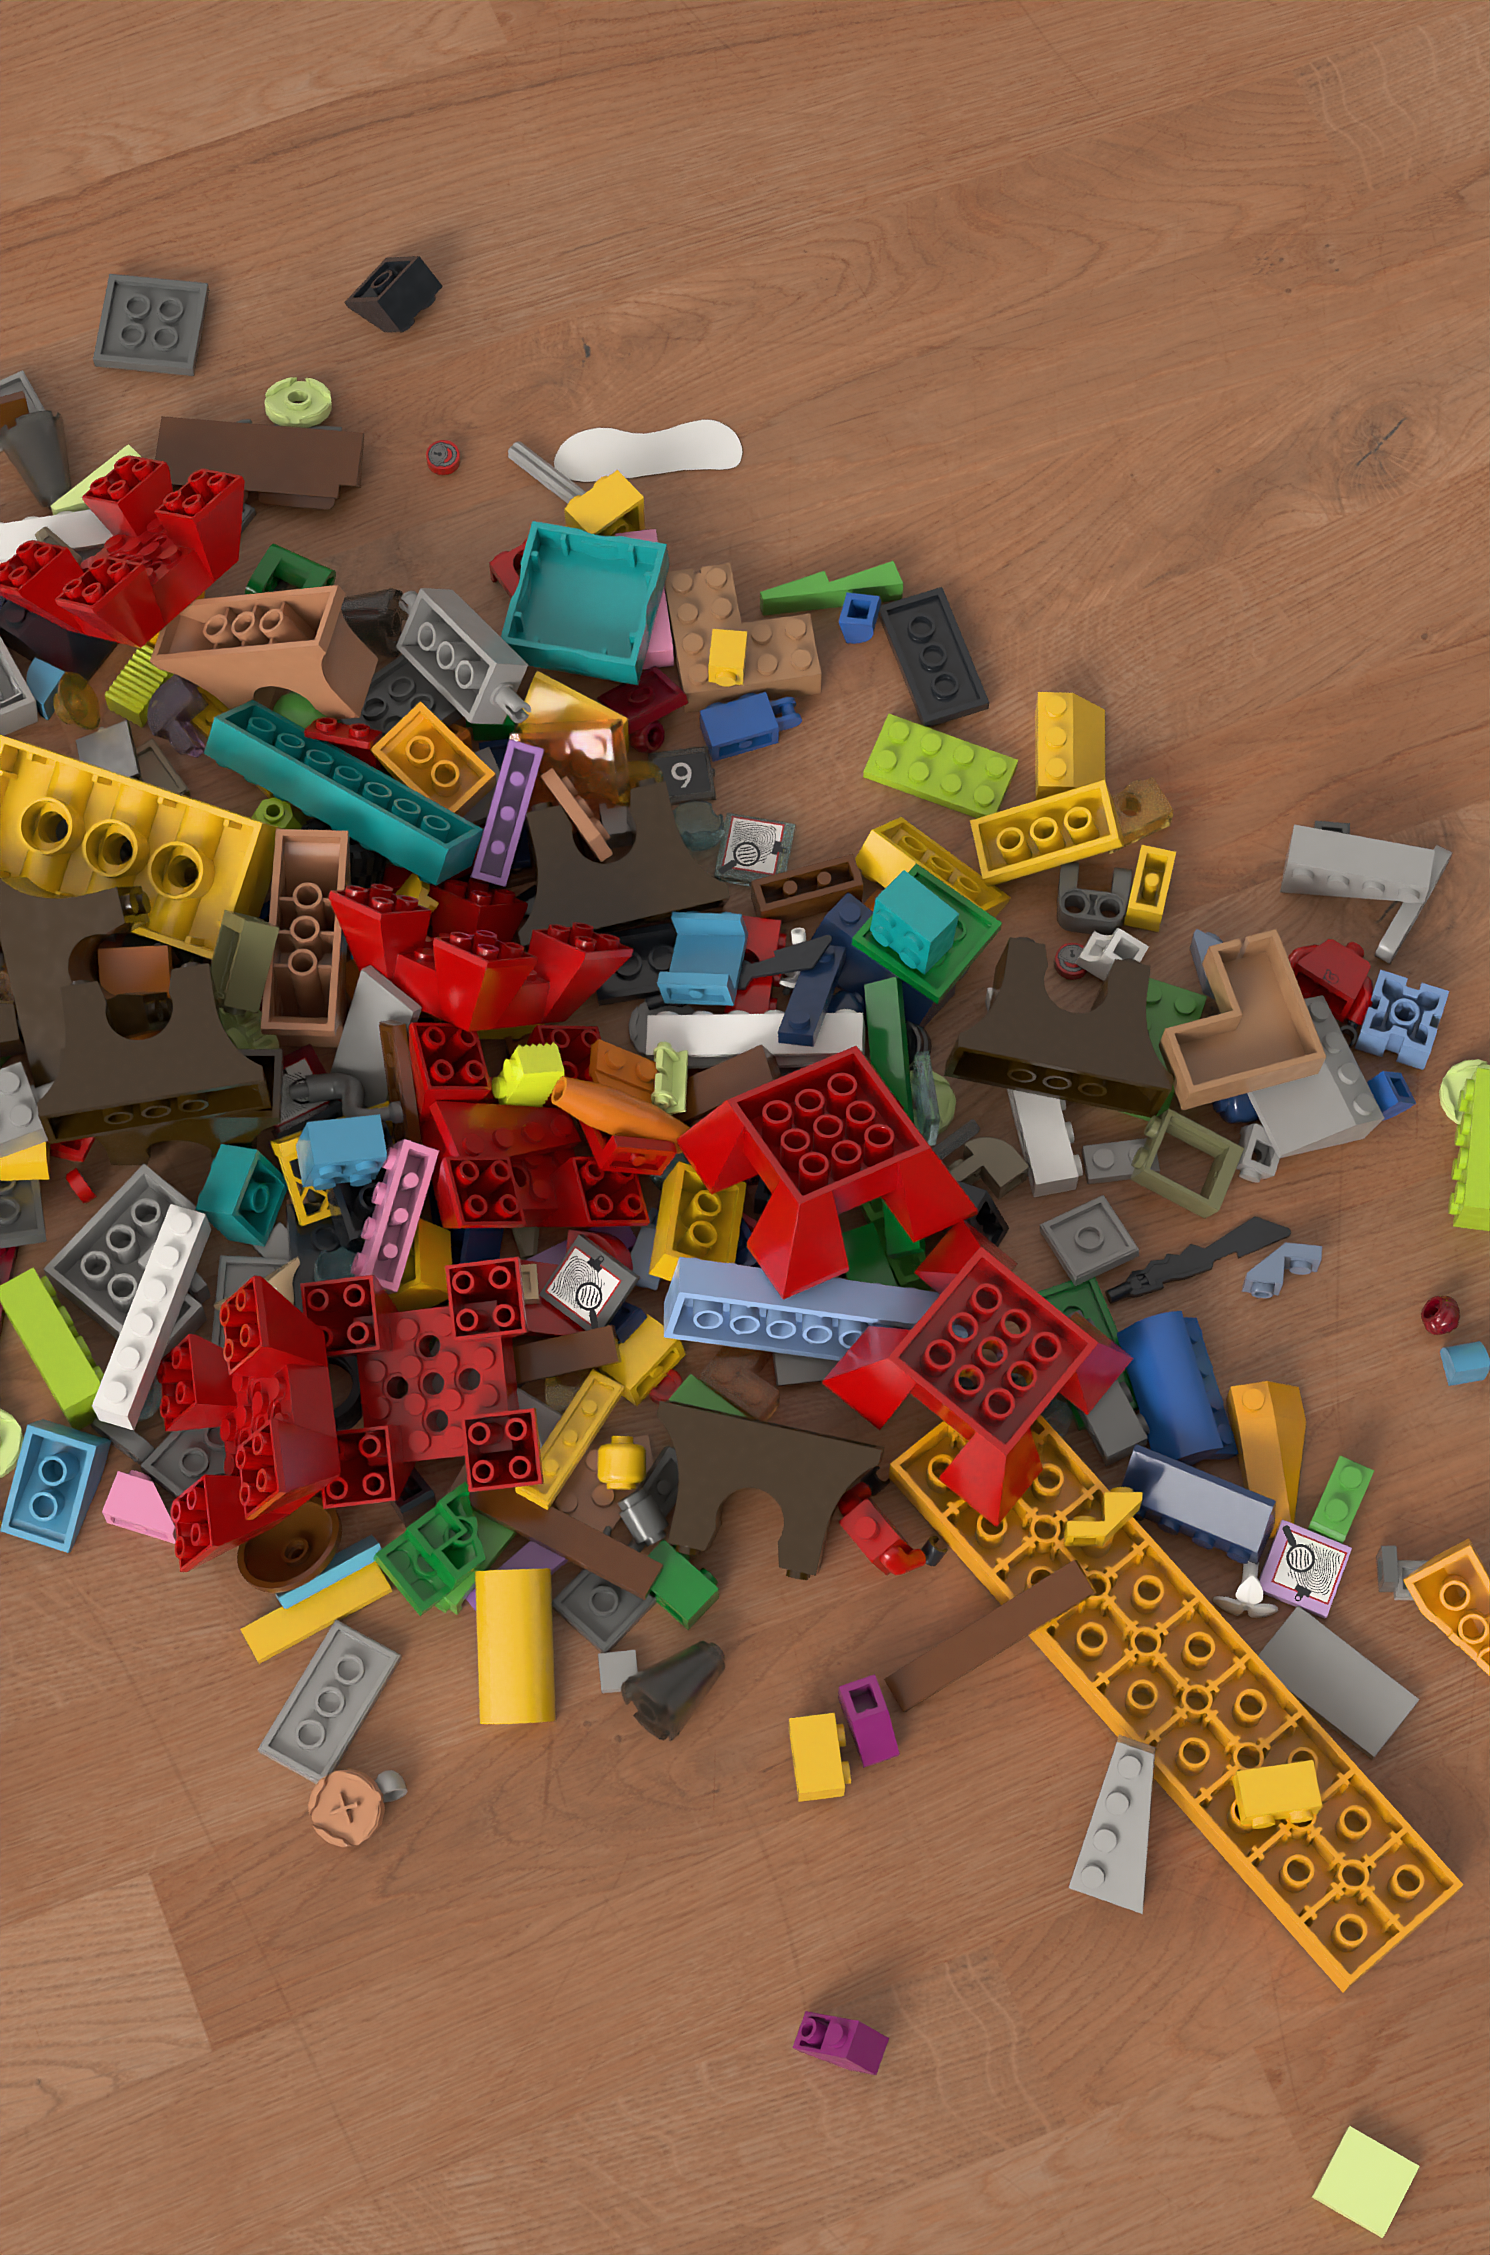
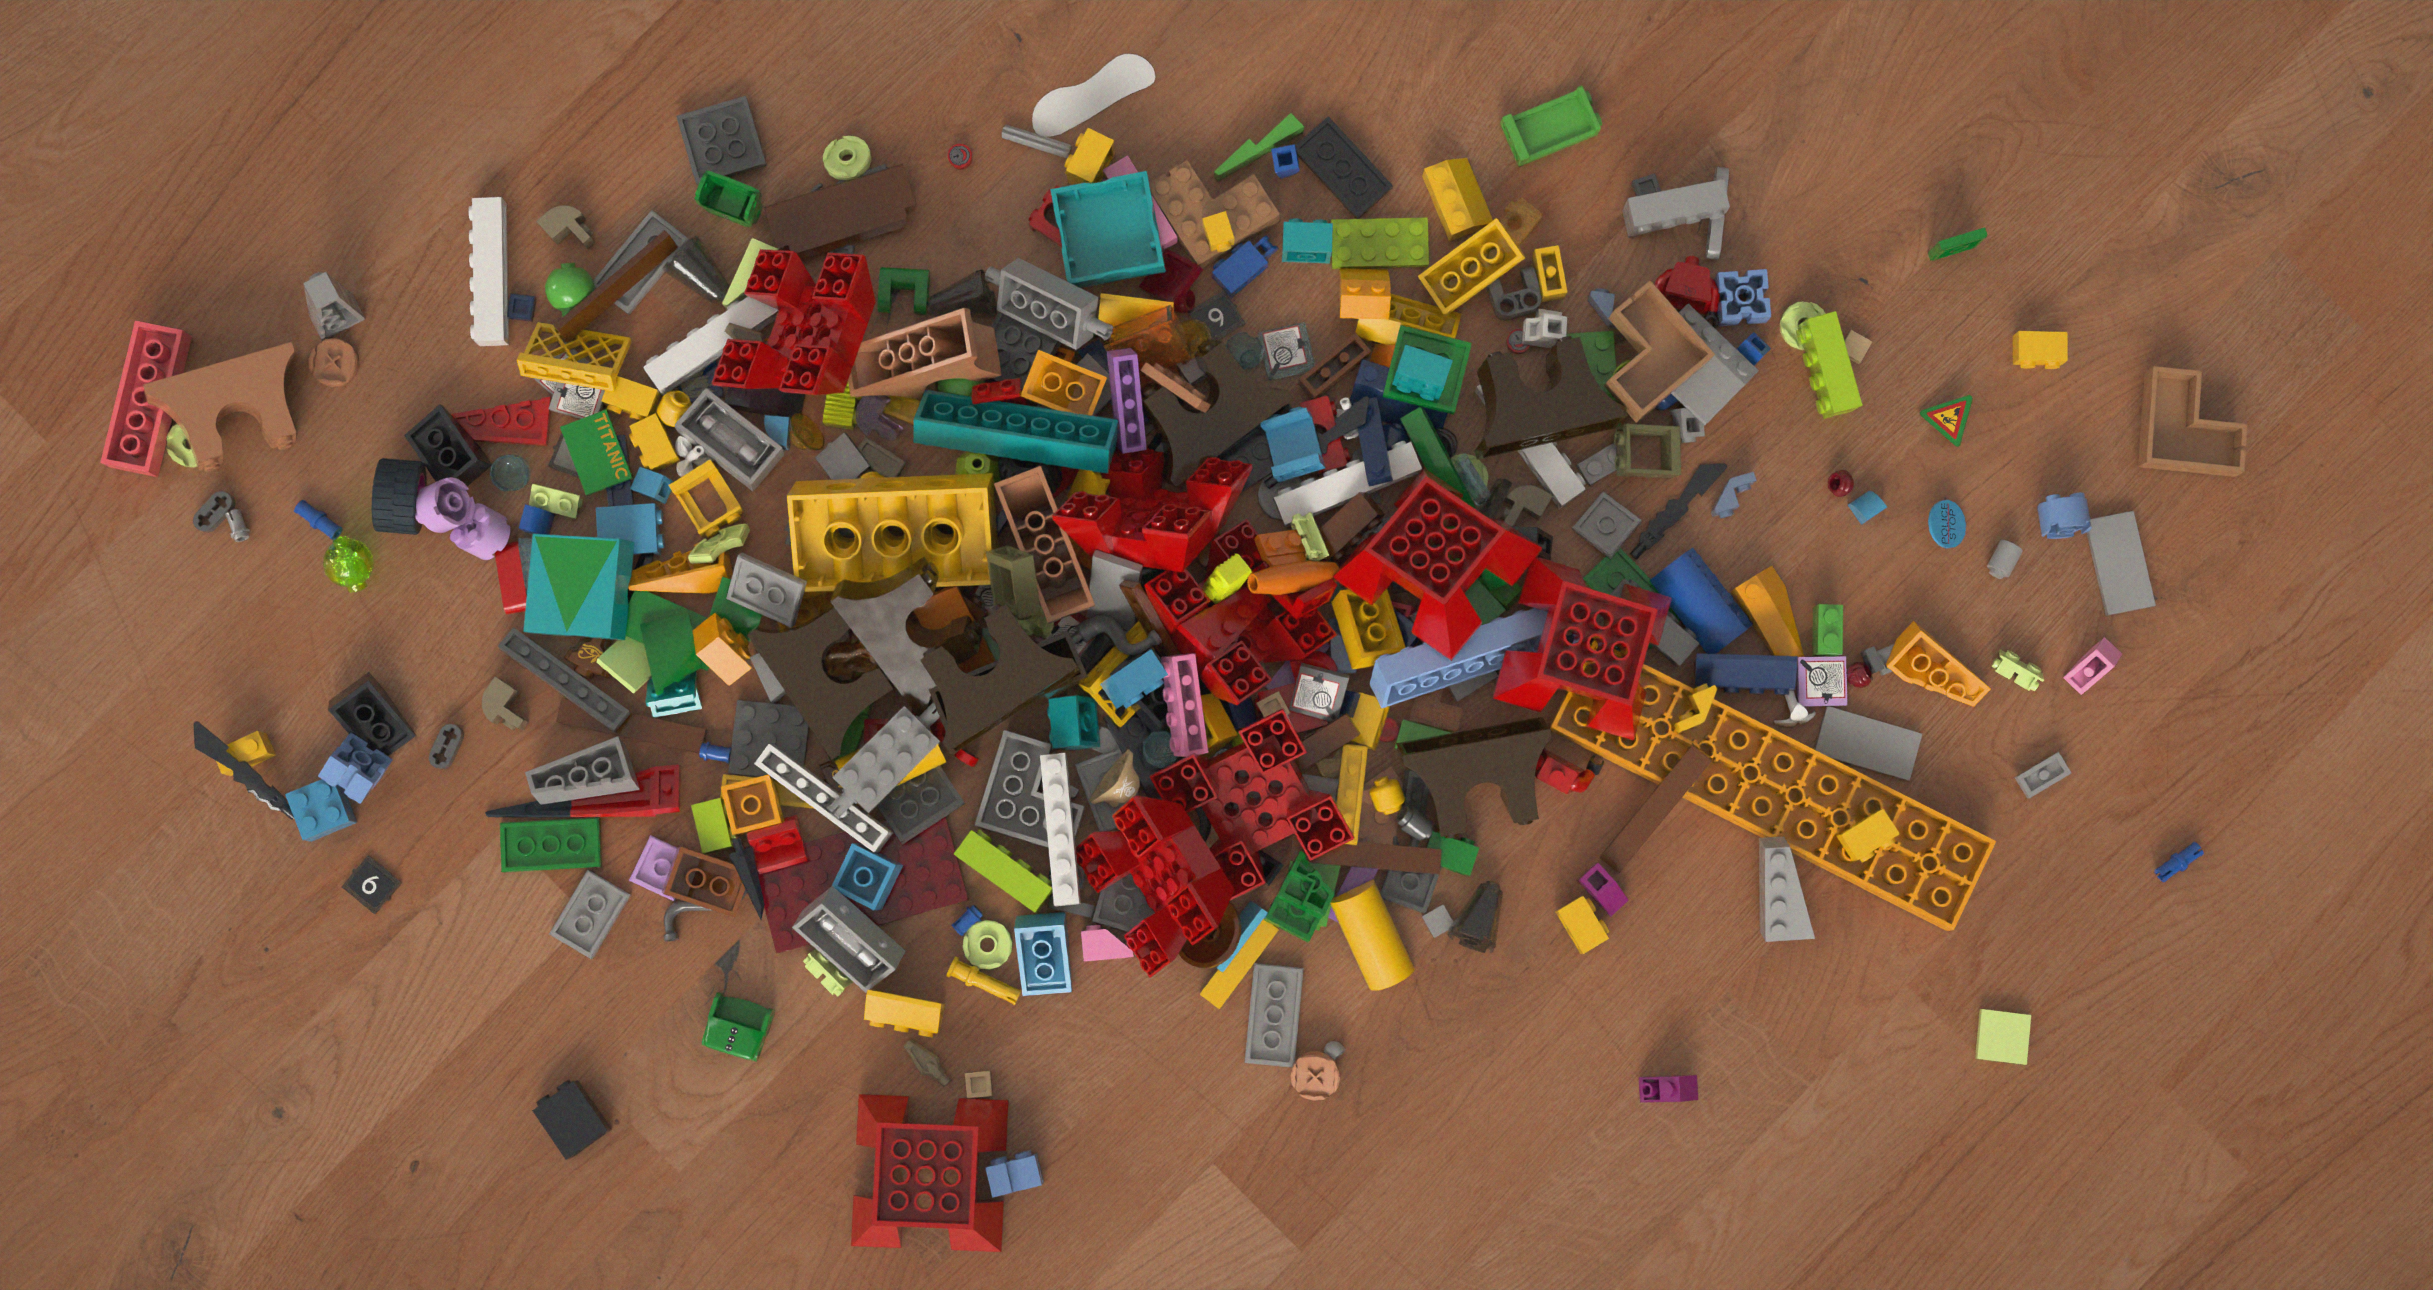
camera: 25 degrees left, 15 degrees up
(122, 387) = (729, 199): none -> green piece
(395, 293) = (873, 50): black slope -> none
(841, 722) = (1307, 241): none -> teal brick
(885, 812) = (1364, 293): none -> light orange slope
(1234, 714) = (1551, 126): none -> bright green panel
(1361, 1581) = (1859, 675): none -> dark red piece

